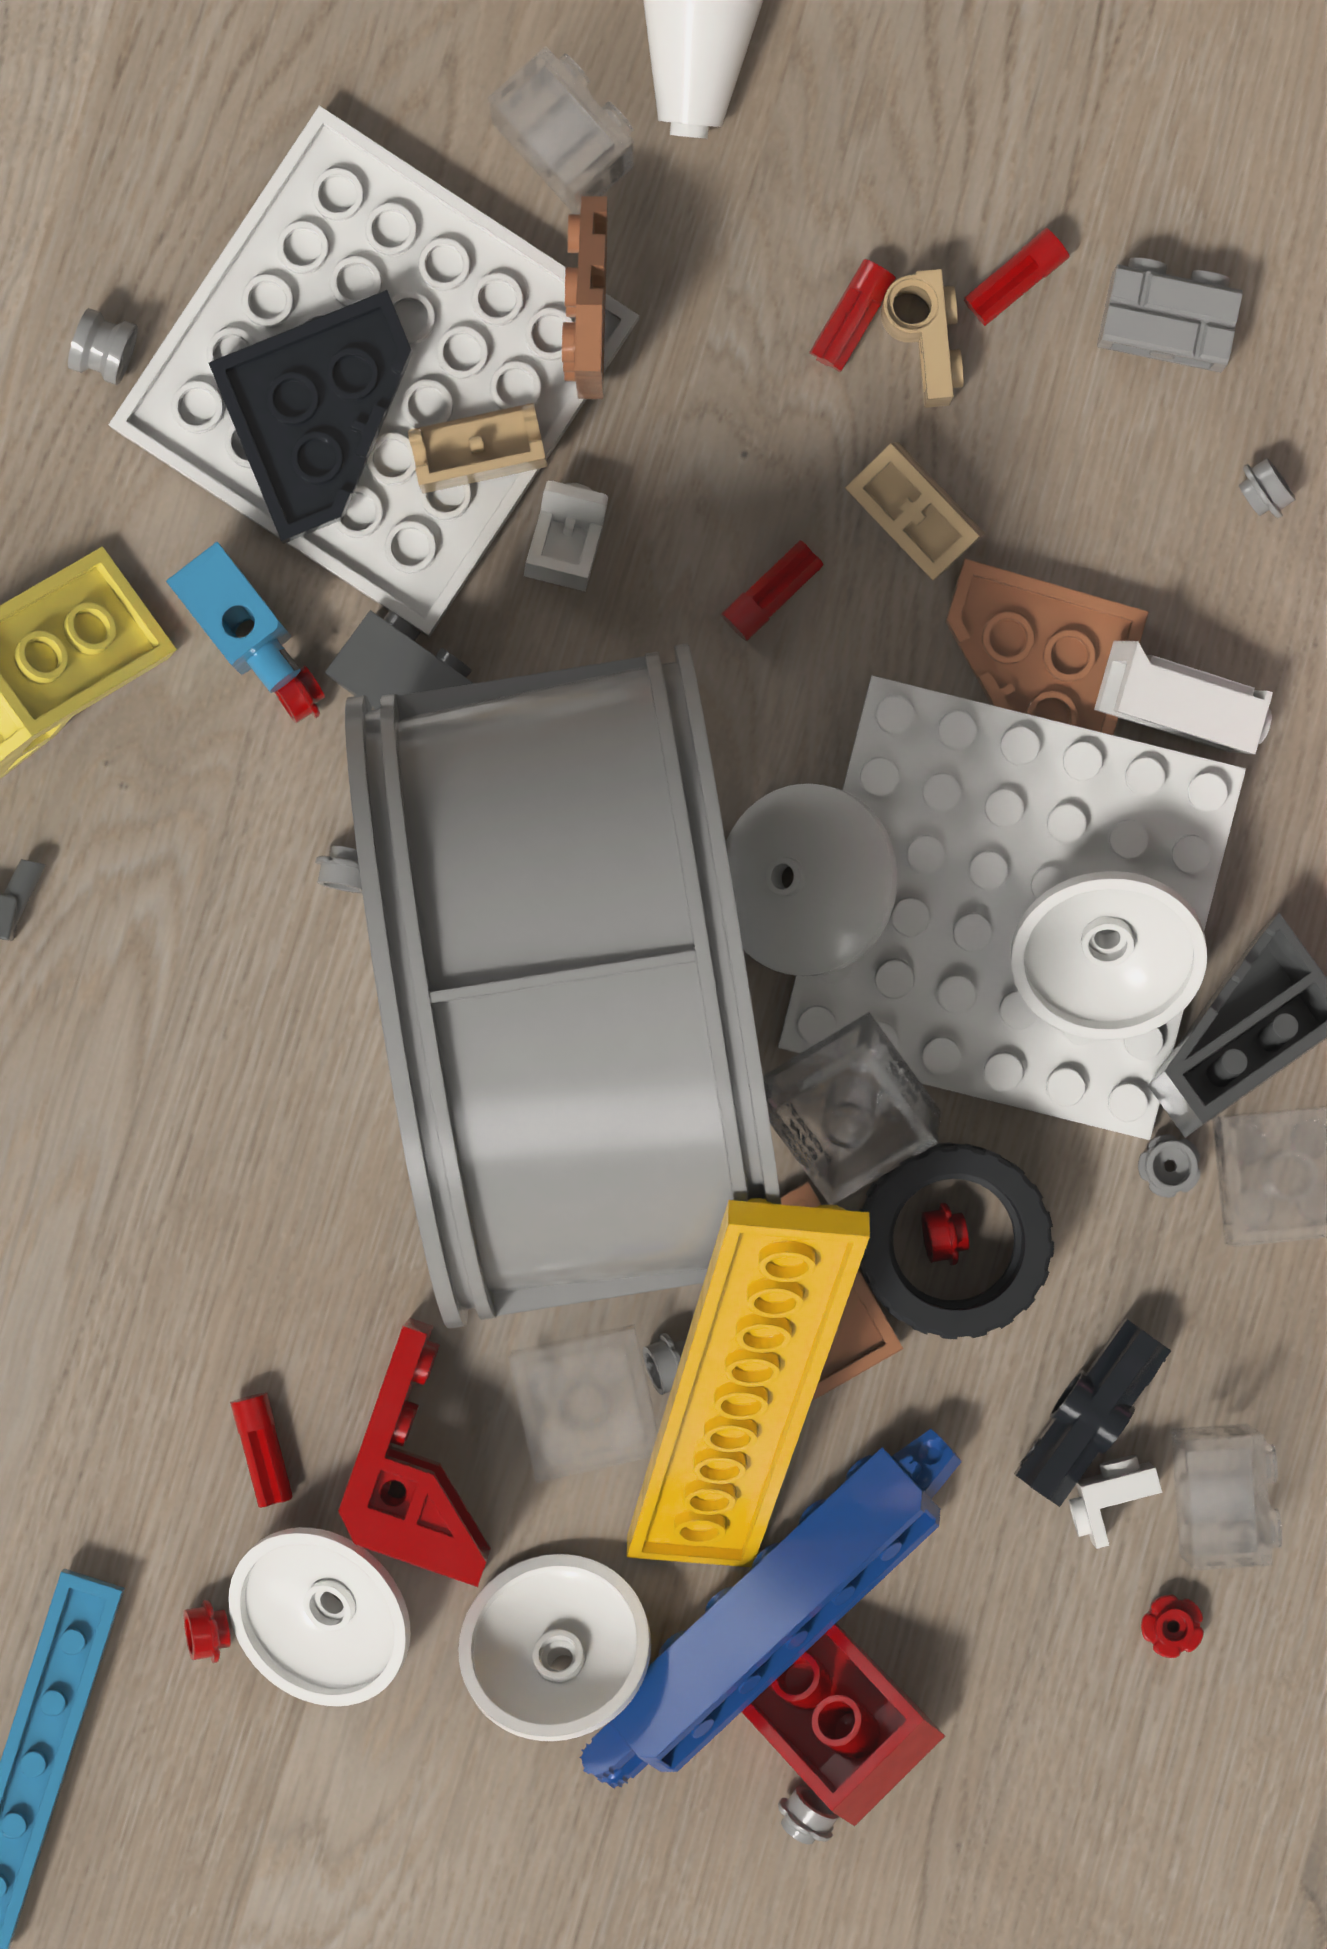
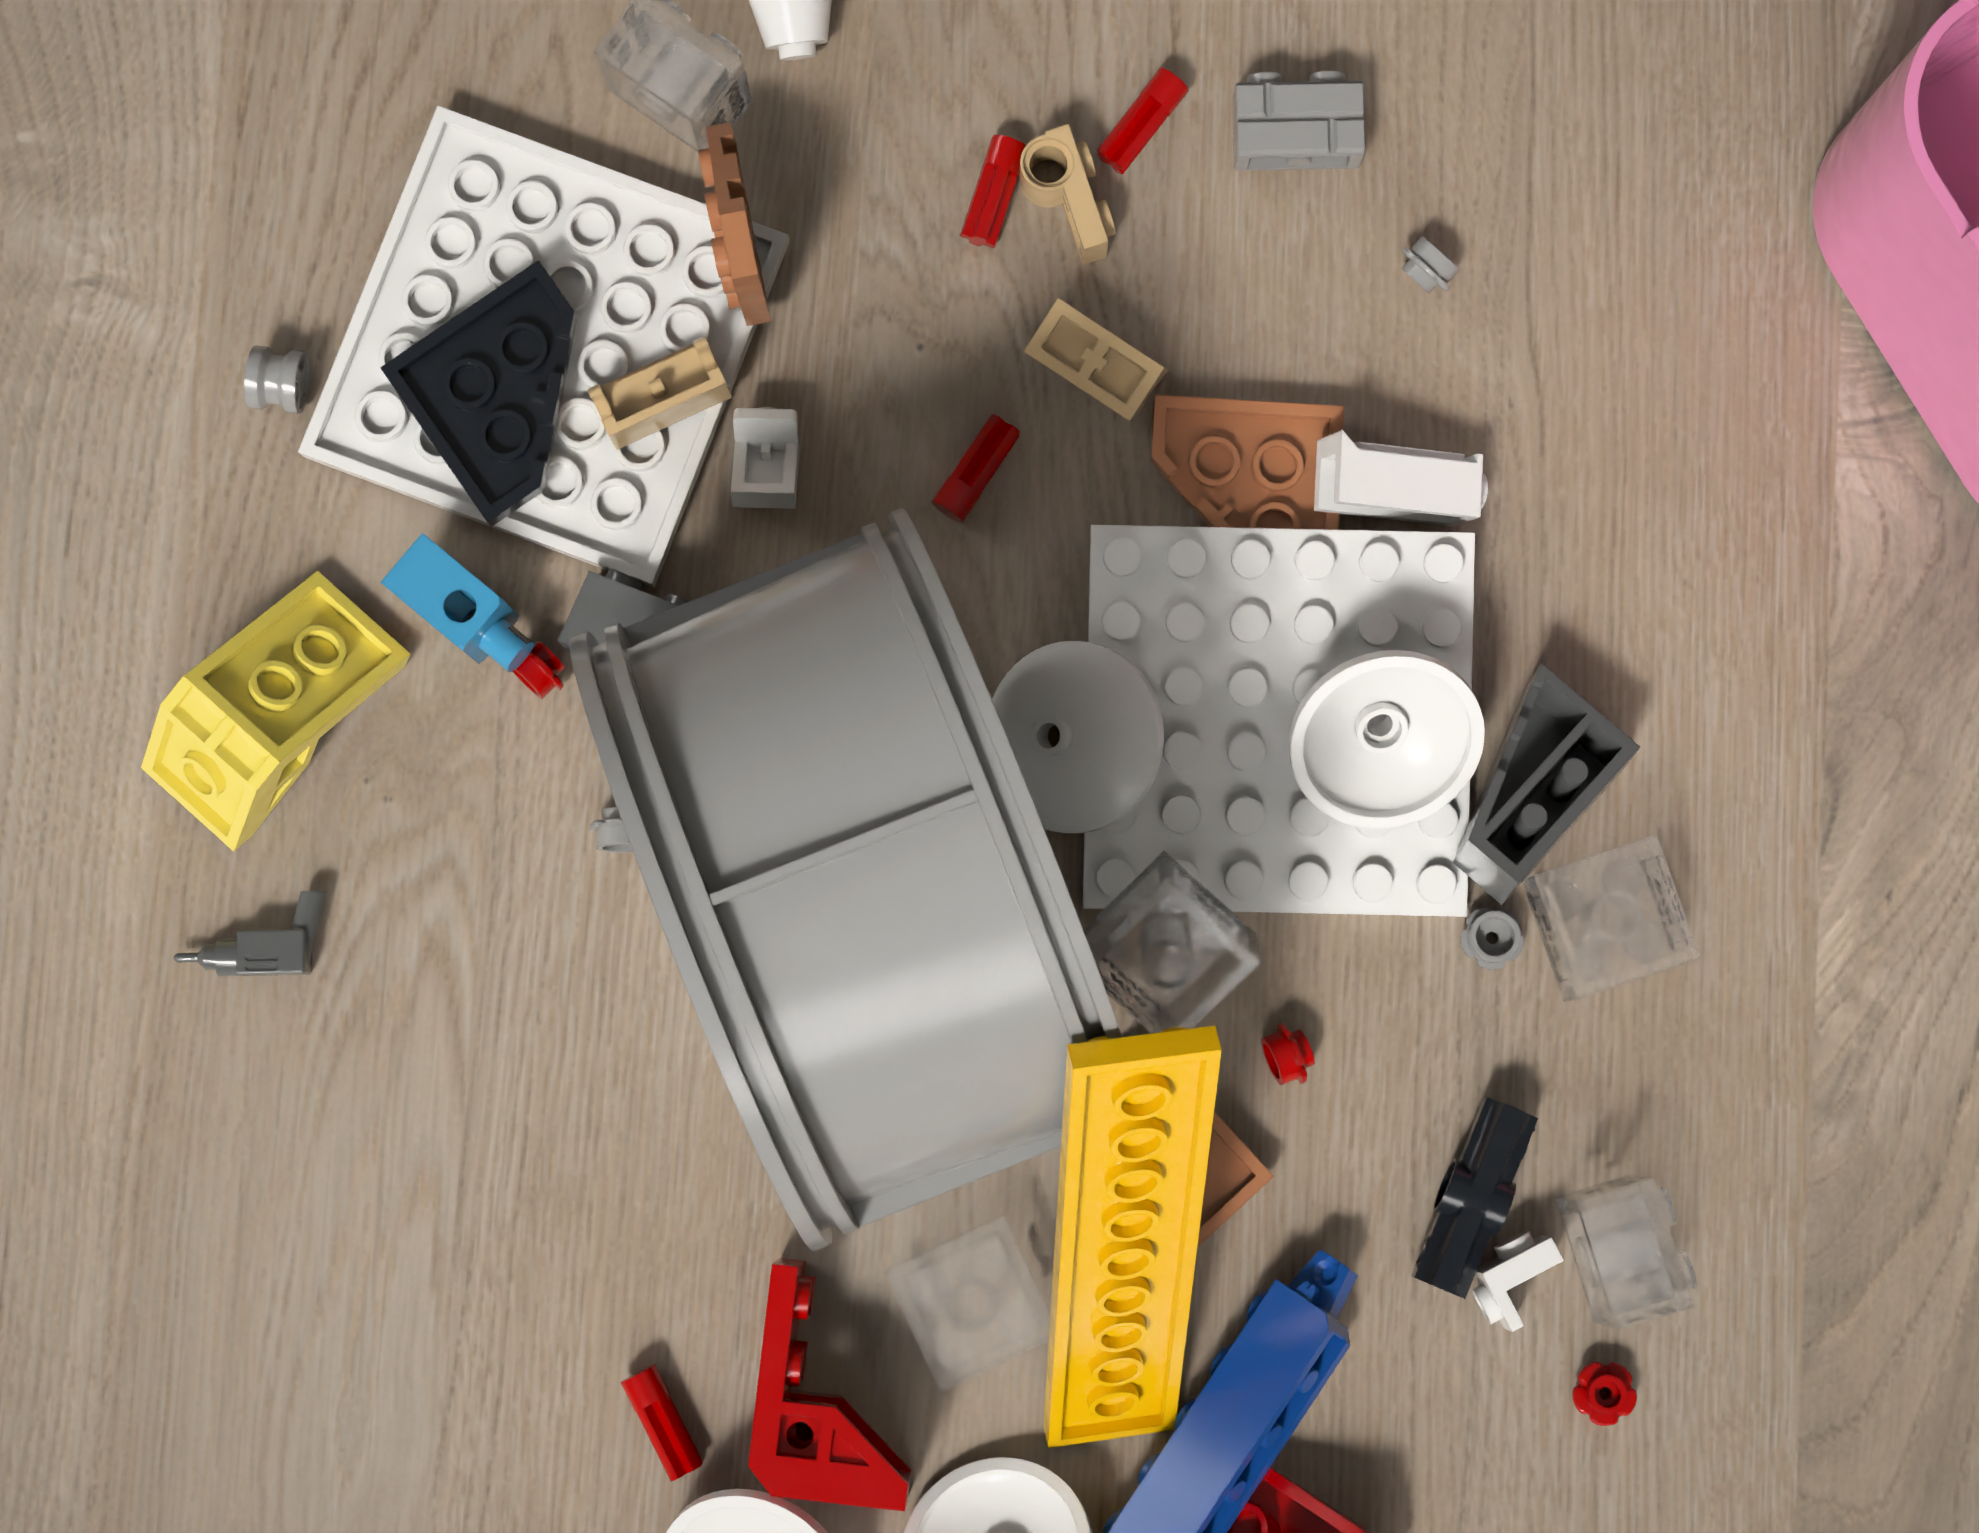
camera: 10 degrees left, 5 degrees down
(662, 1362) = (1038, 1244): light grey plate -> none
(1028, 1261) = (1377, 1056): black tyre -> none

